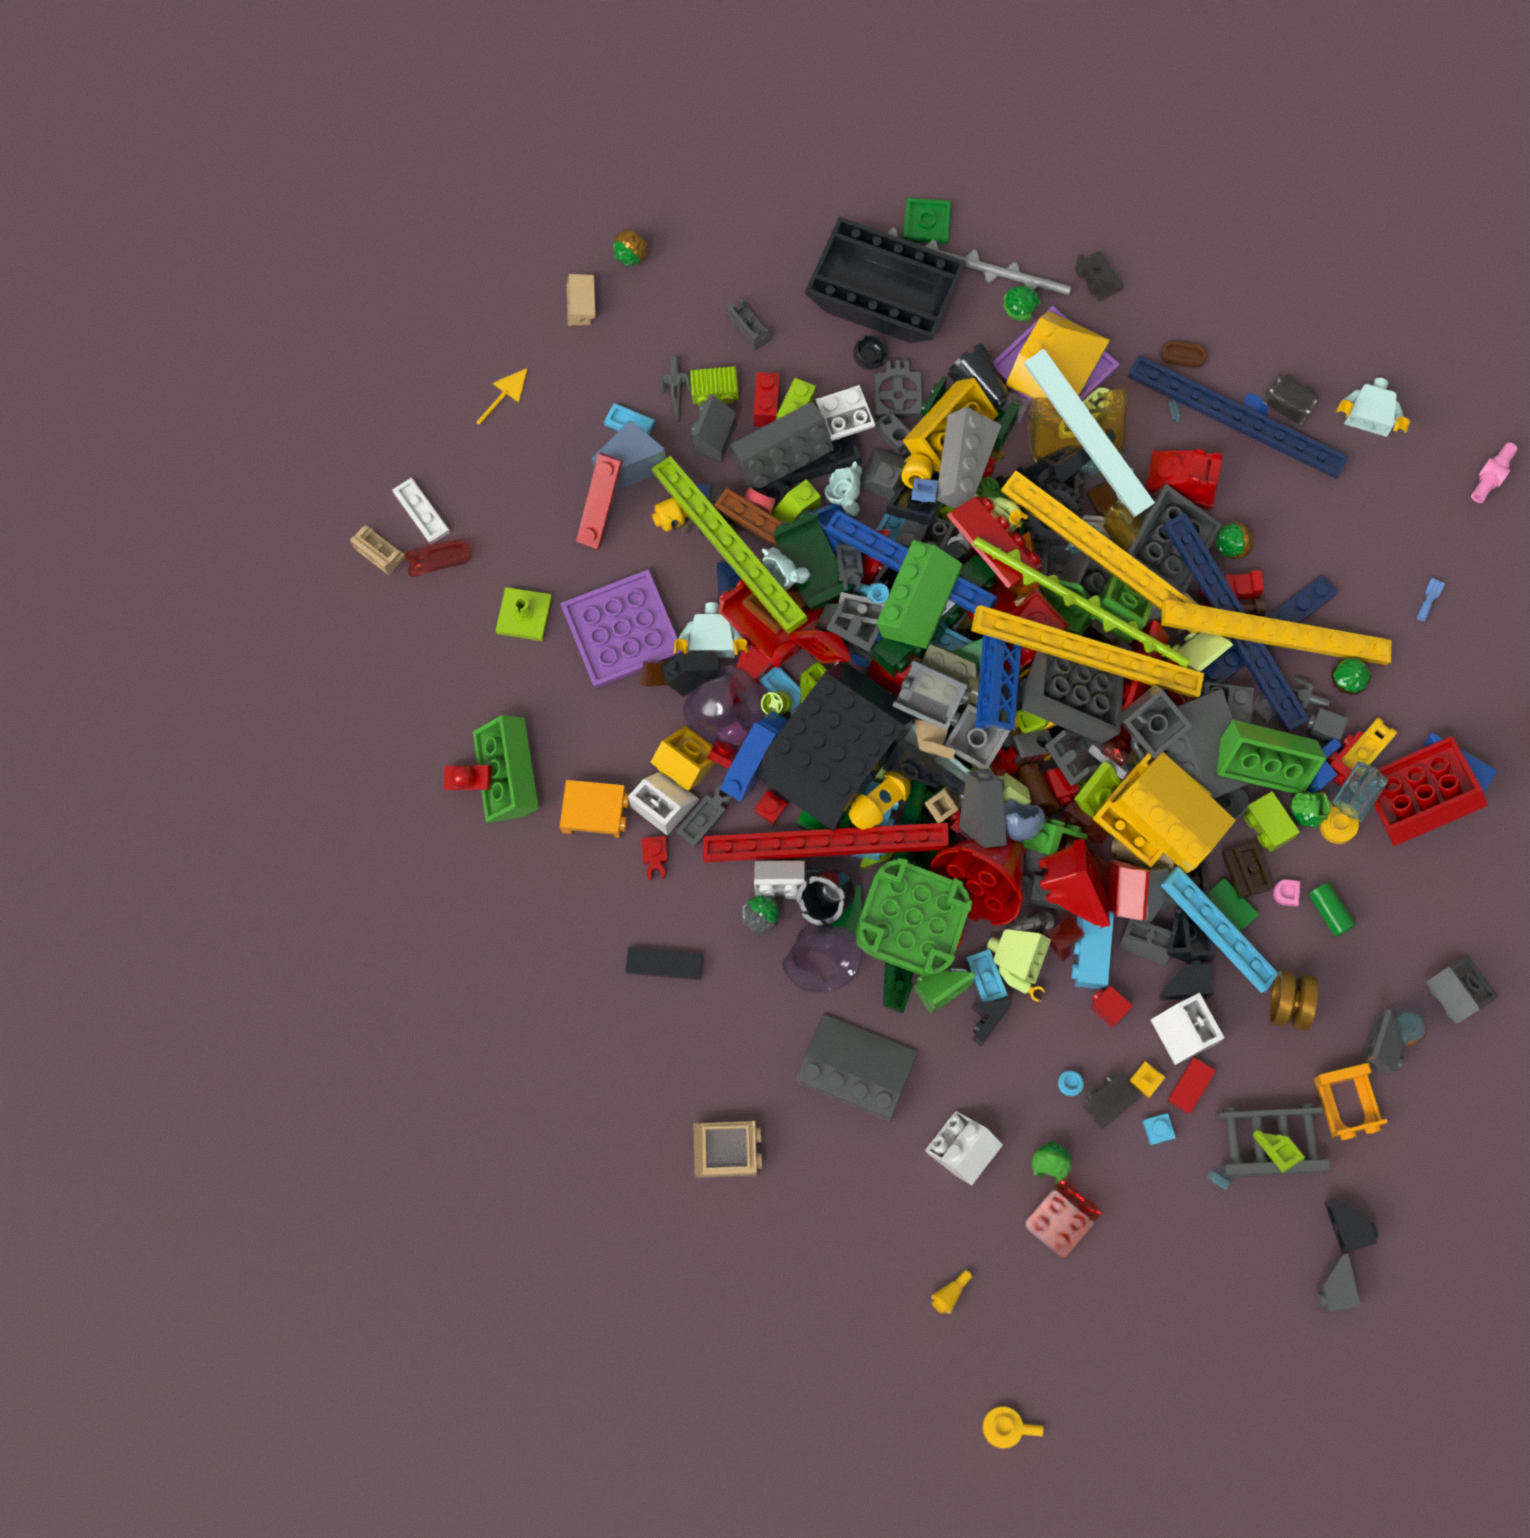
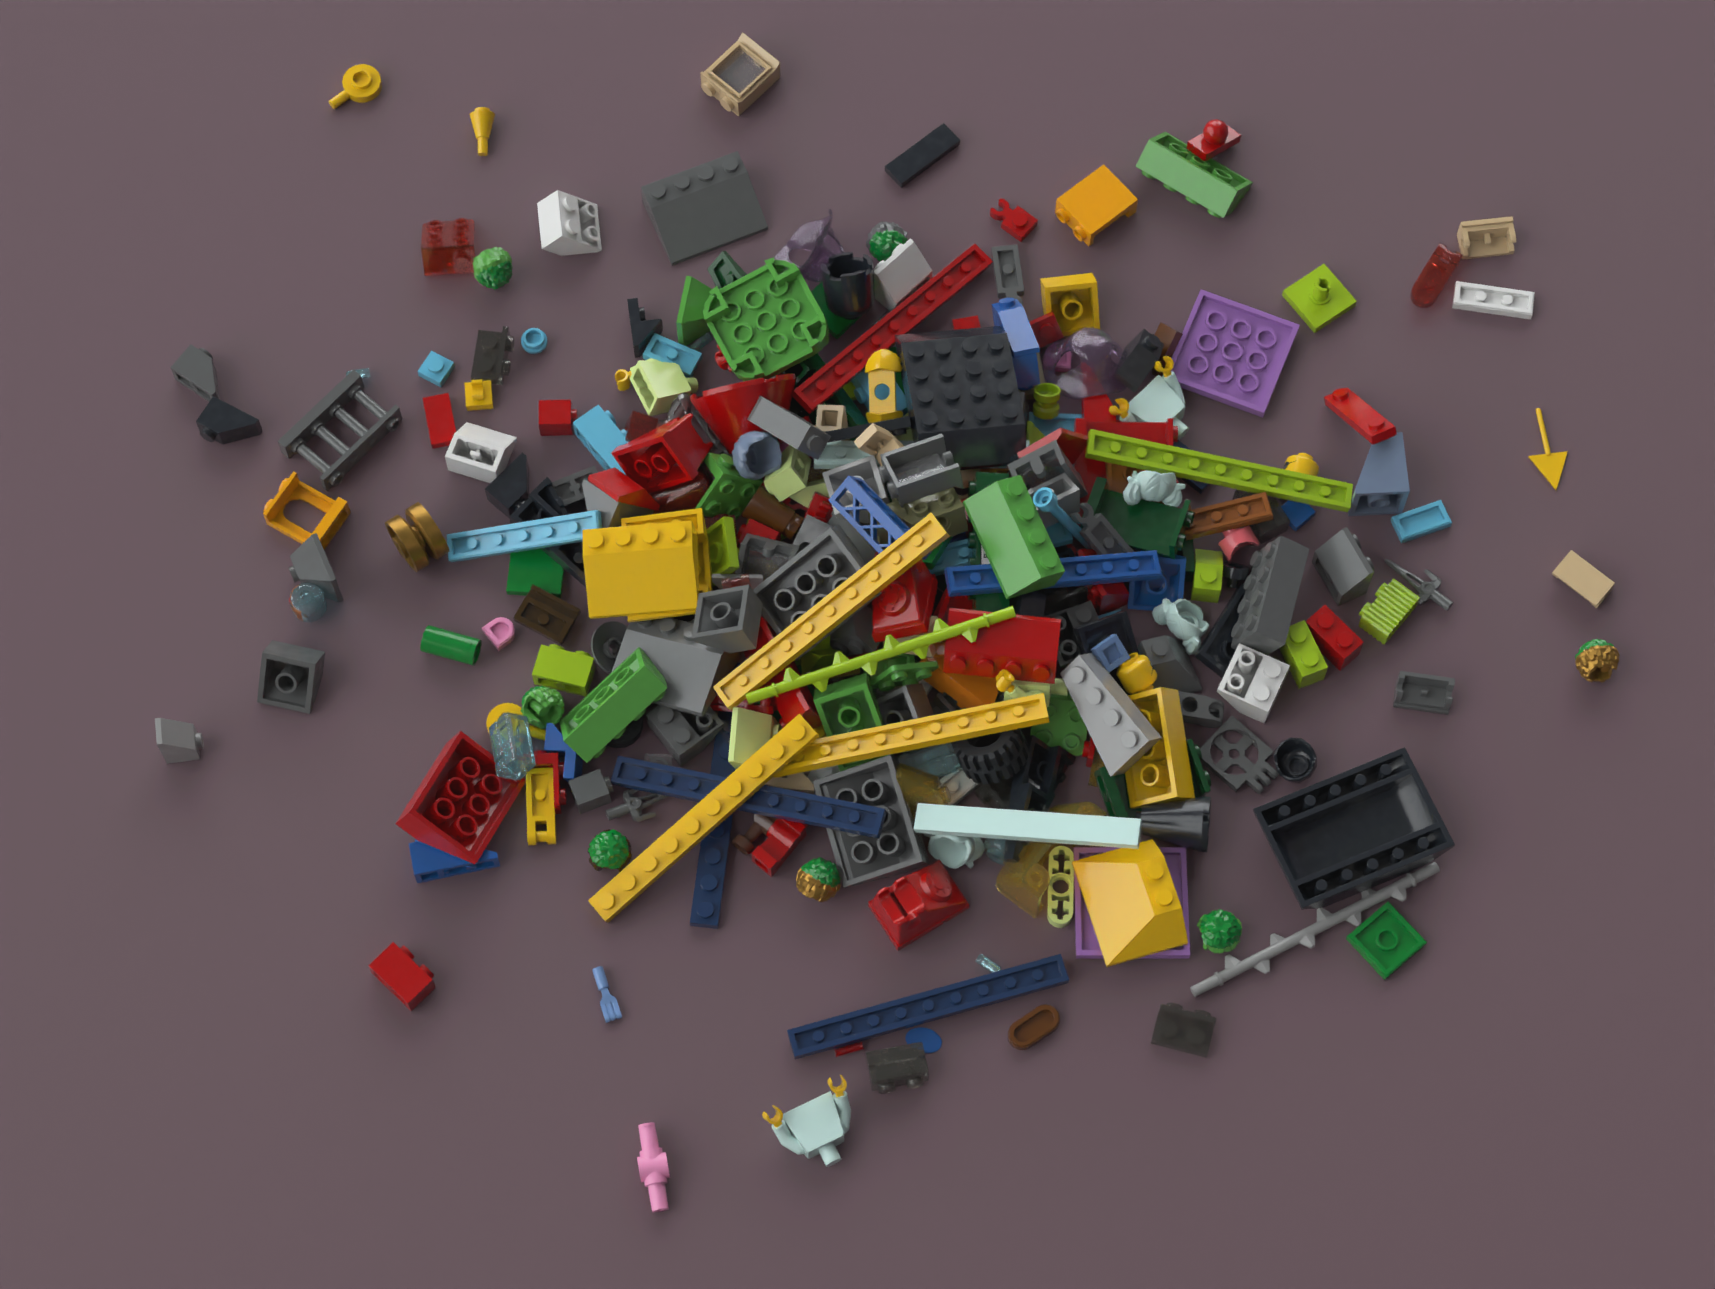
camera: 130 degrees right, 5 degrees down
(662, 801) = (1050, 252): white slope -> none
(1280, 1150) = (328, 420): lime tile -> none

